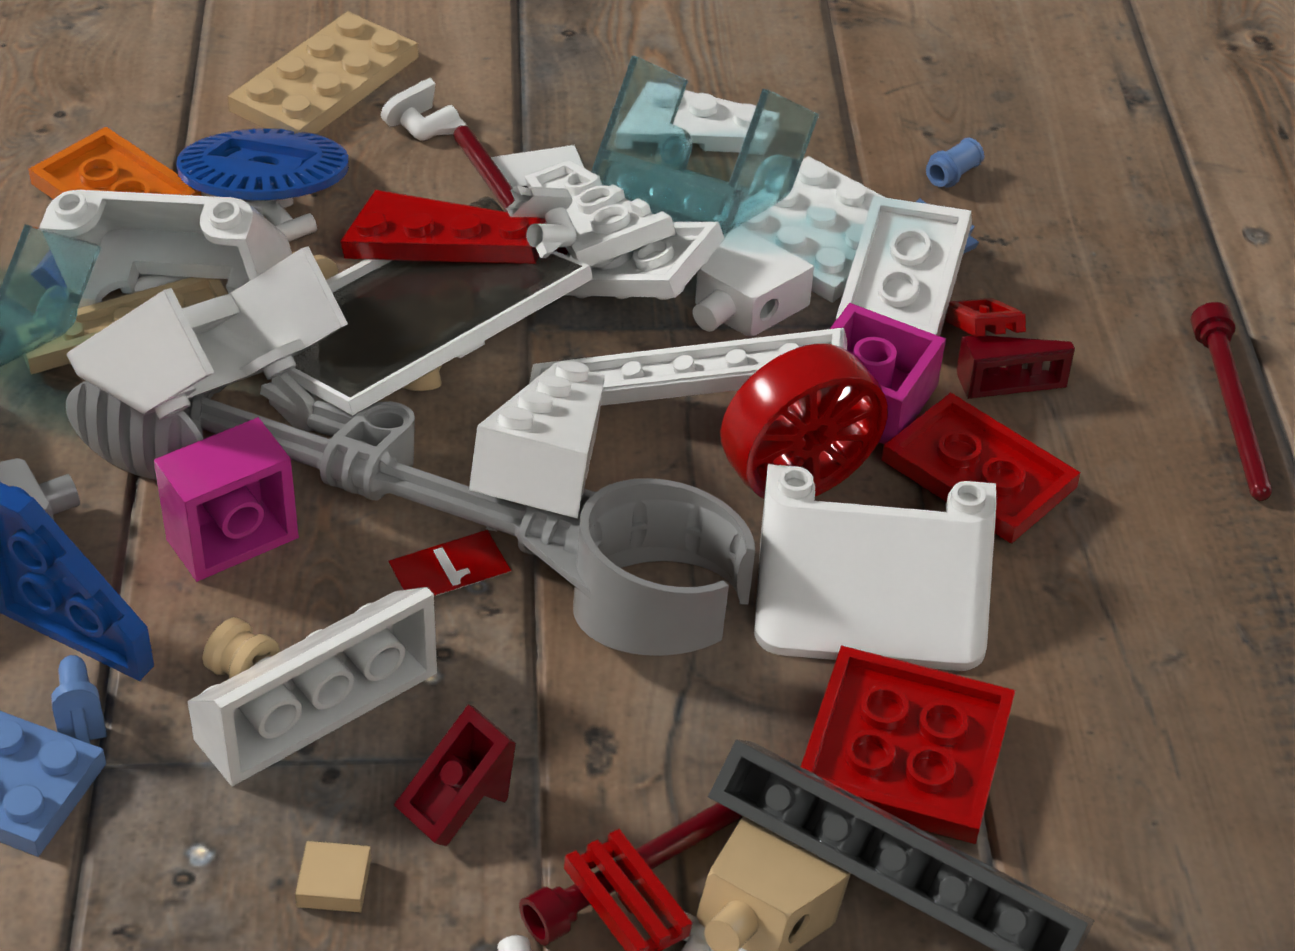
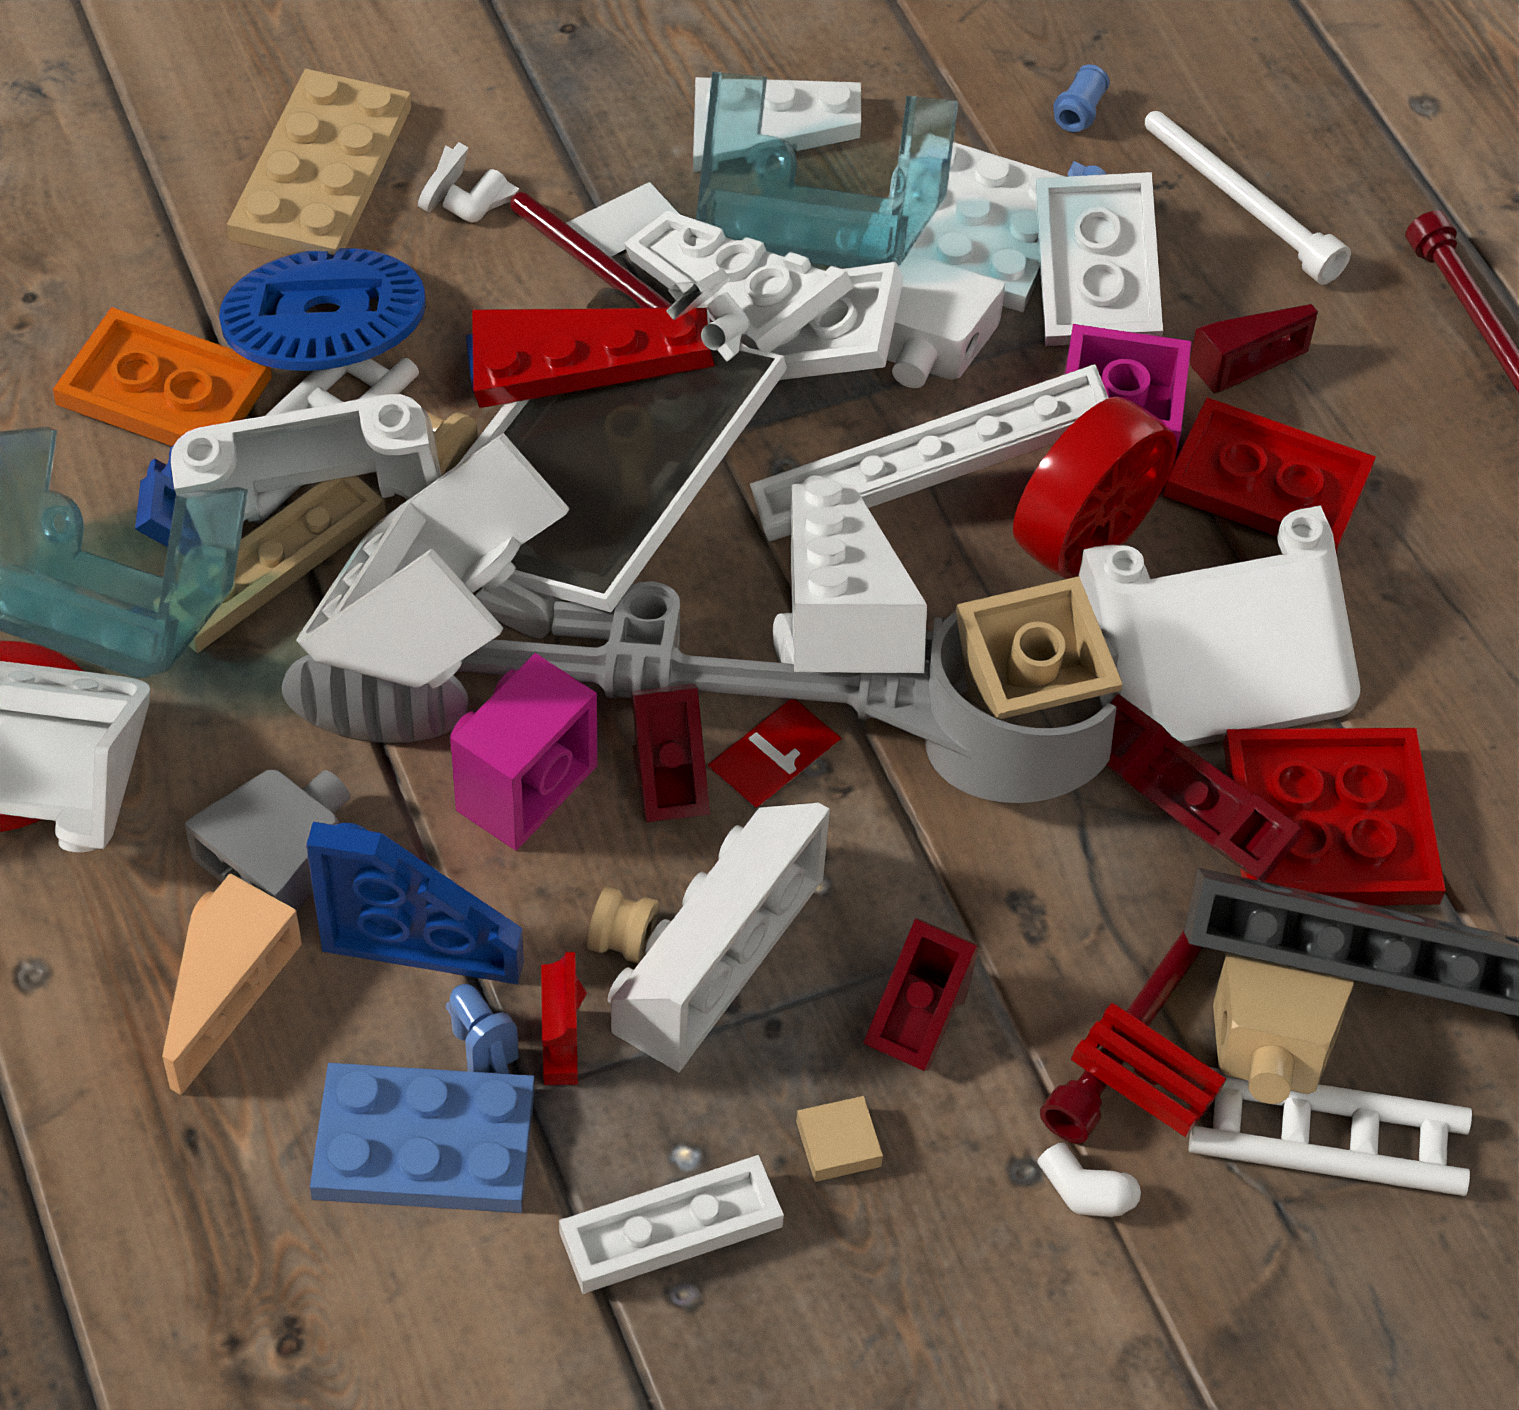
camera: 20 degrees left, 10 degrees up
(140, 708) = (561, 1000): none -> red piece
(147, 899) = (670, 1224): none -> white plate
(350, 535) = (670, 752): none -> dark red slope
(678, 519) = (1034, 649): none -> tan slope
(782, 681) = (1198, 794): none -> dark red slope
(992, 316) = (1207, 294): red tile -> none
(1106, 315) = (1321, 255): none -> white piece

